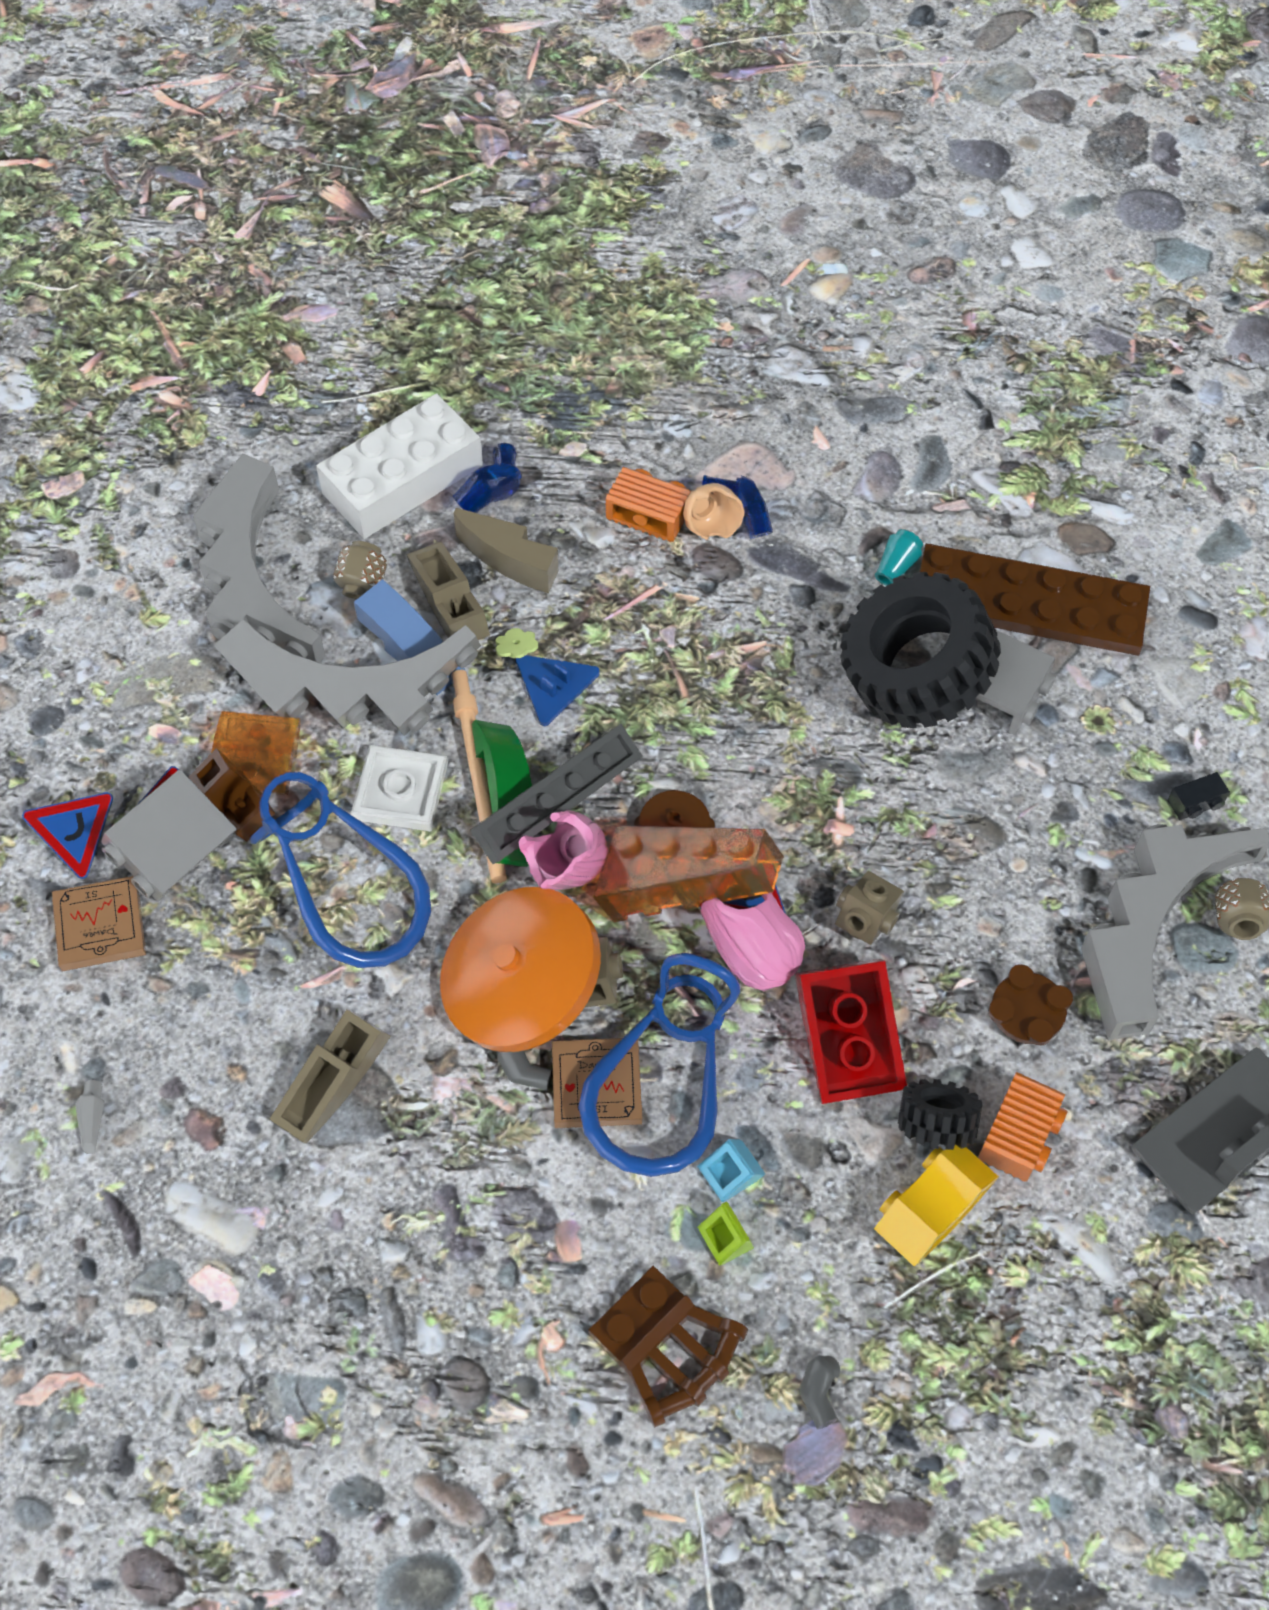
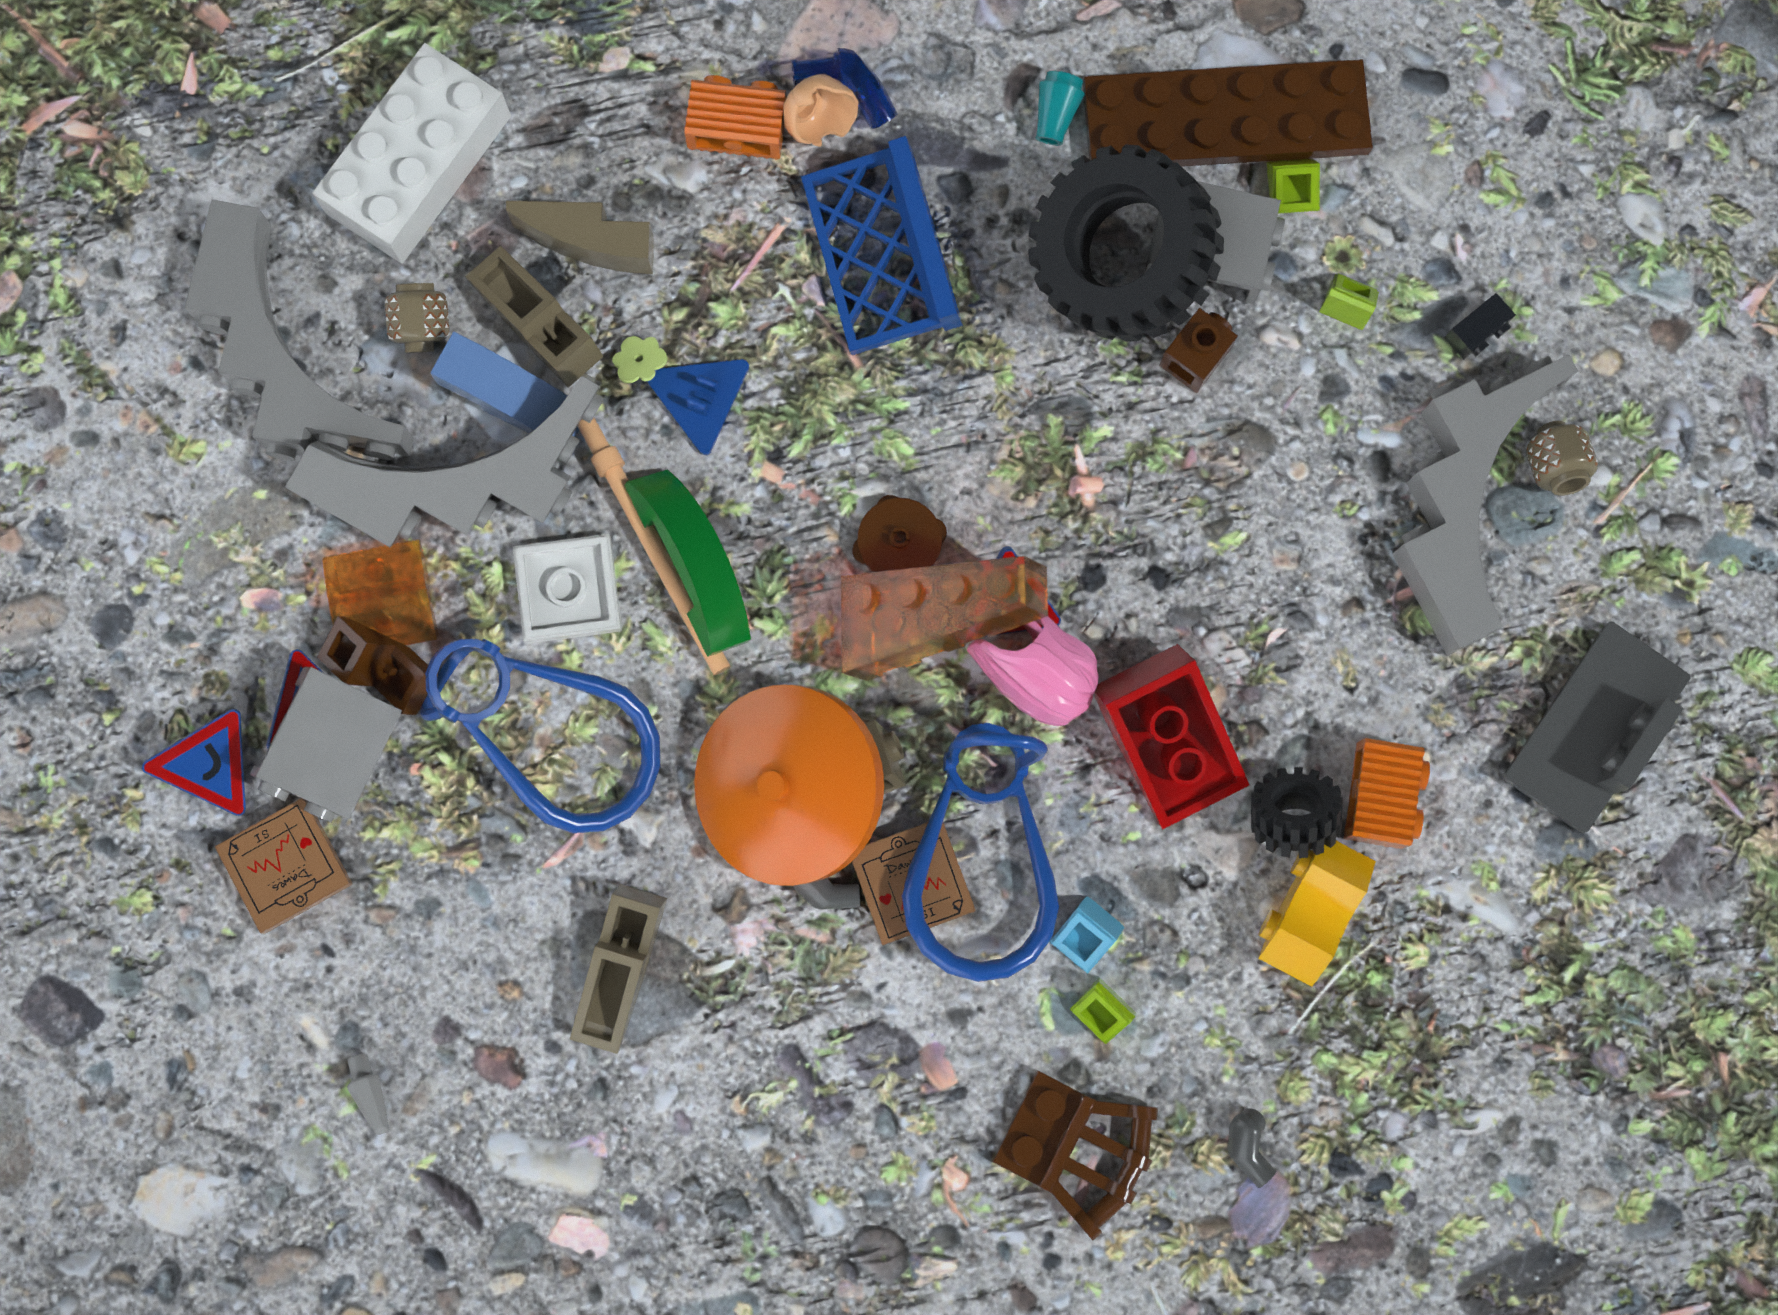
camera: 20 degrees left, 20 degrees up
(492, 481) = (534, 145): clear blue arm -> none
(555, 793) = (757, 552): dark grey plate -> none
(568, 855) = (793, 628): bright pink hair -> none
(762, 622) = (921, 238): none -> blue fence
(869, 907) = (1152, 586): dark tan brick -> none
(959, 750) = (1199, 349): none -> reddish brown brick
(1029, 1006) = (1356, 647): reddish brown piece -> none
(1072, 659) = (1295, 184): none -> lime slope
(1093, 751) = (1349, 301): none -> lime slope

